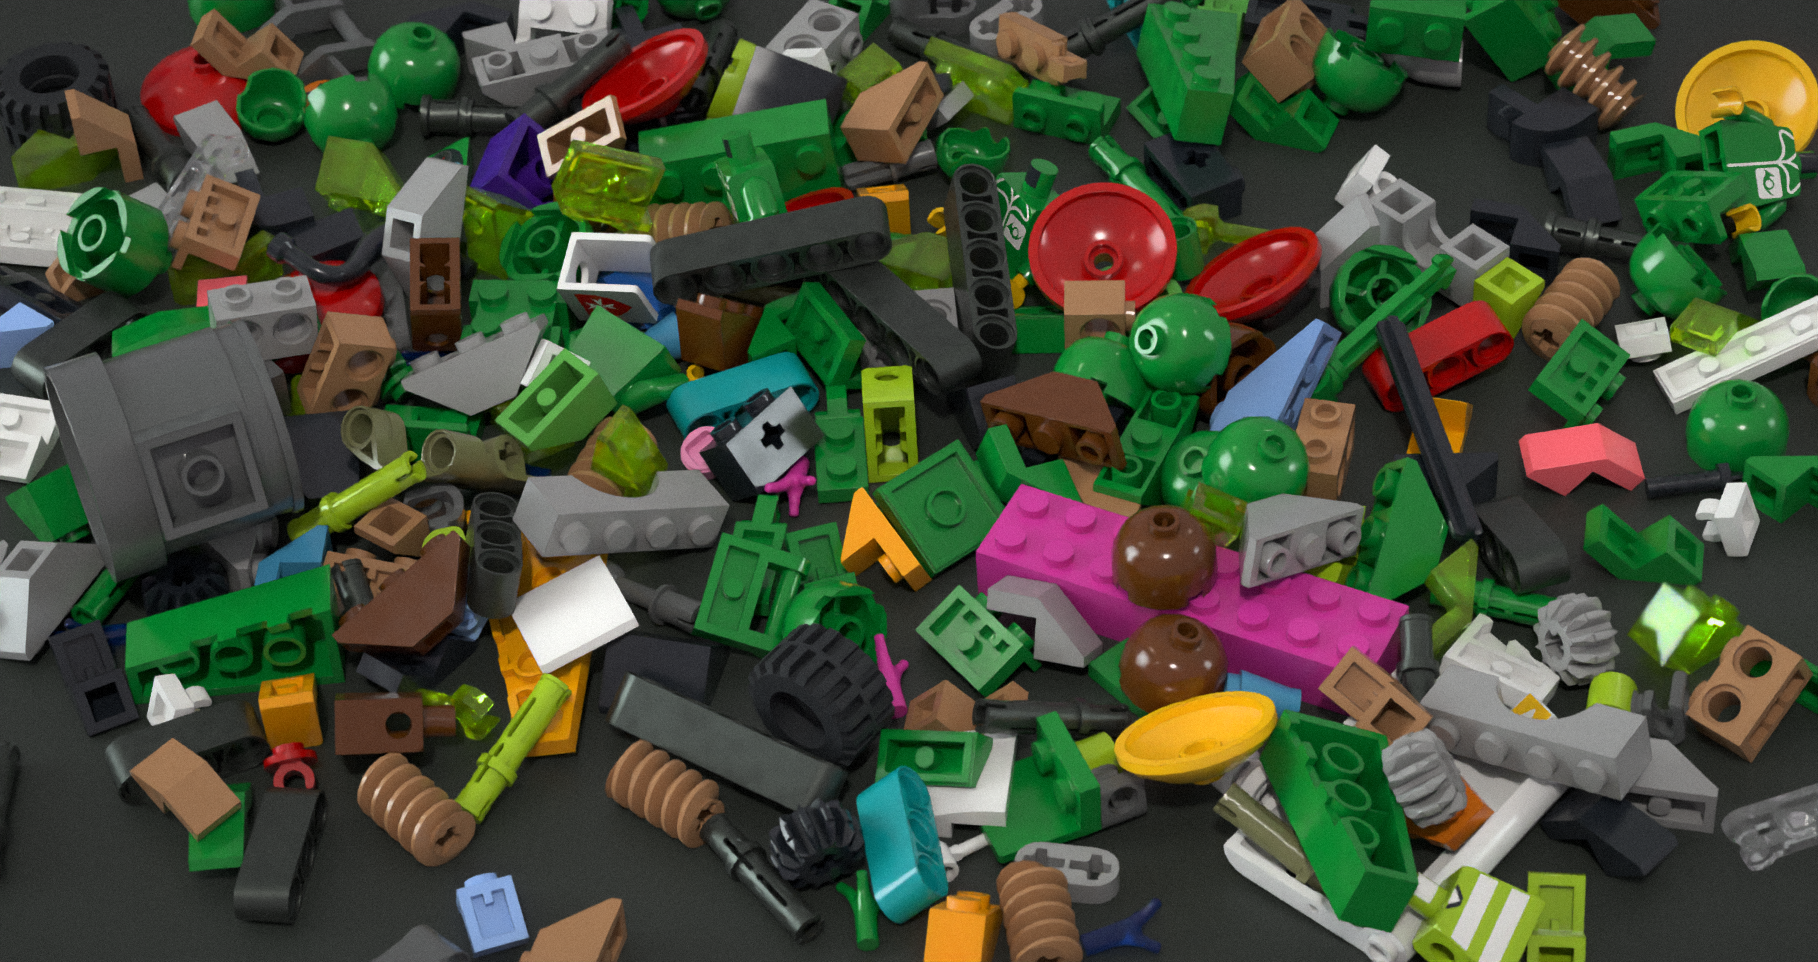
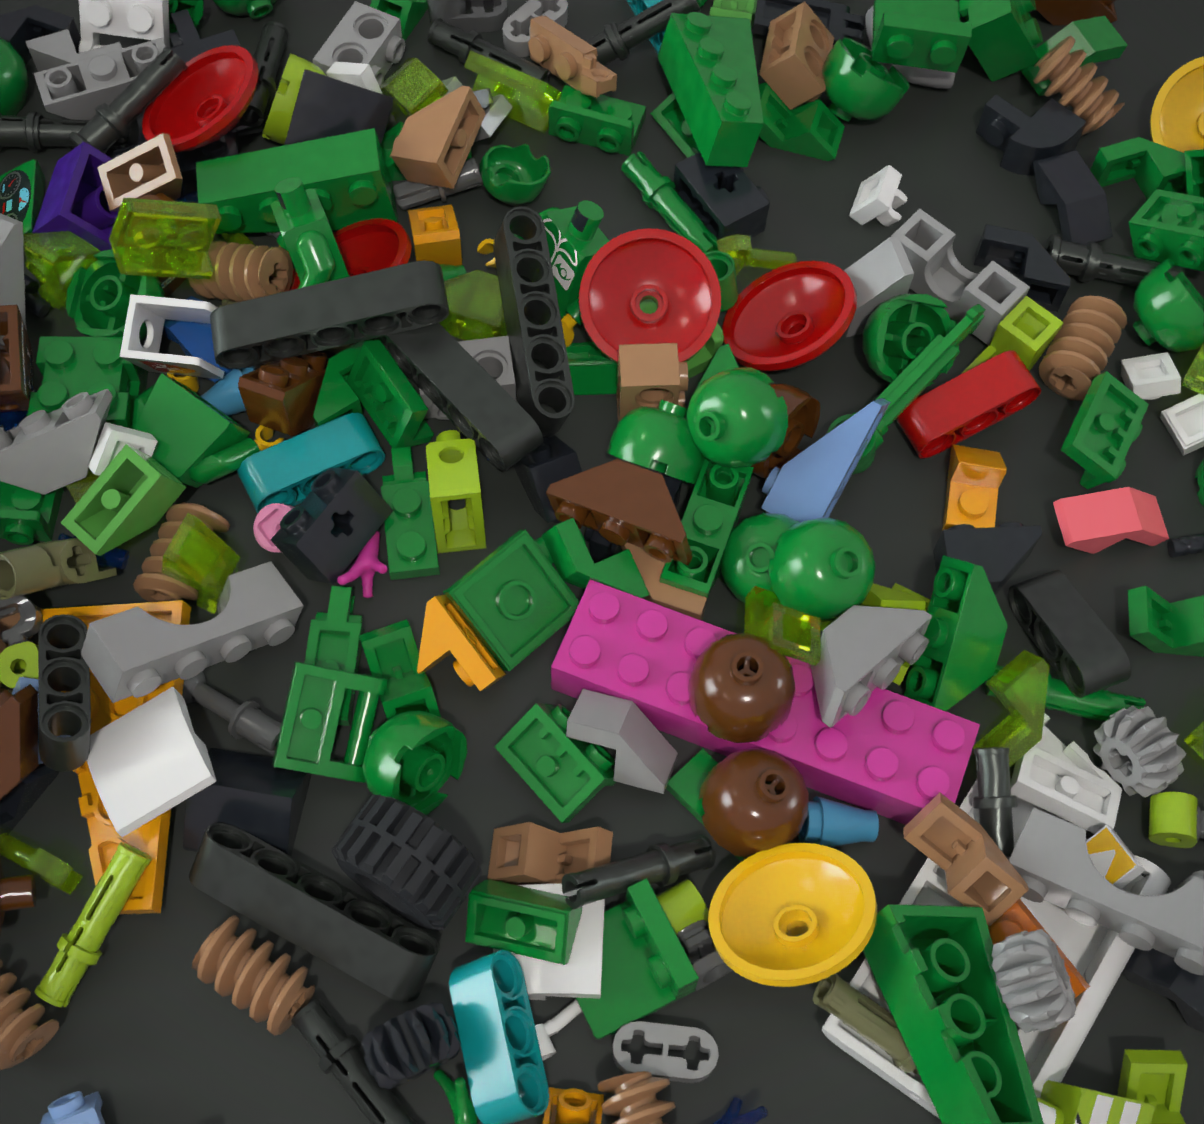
camera: 10 degrees left, 20 degrees up
(892, 675) = (471, 807): dark pink bar -> none
(1329, 436) = (874, 511): medium nougat brick -> none
(1428, 430) = (978, 510): black axle -> none

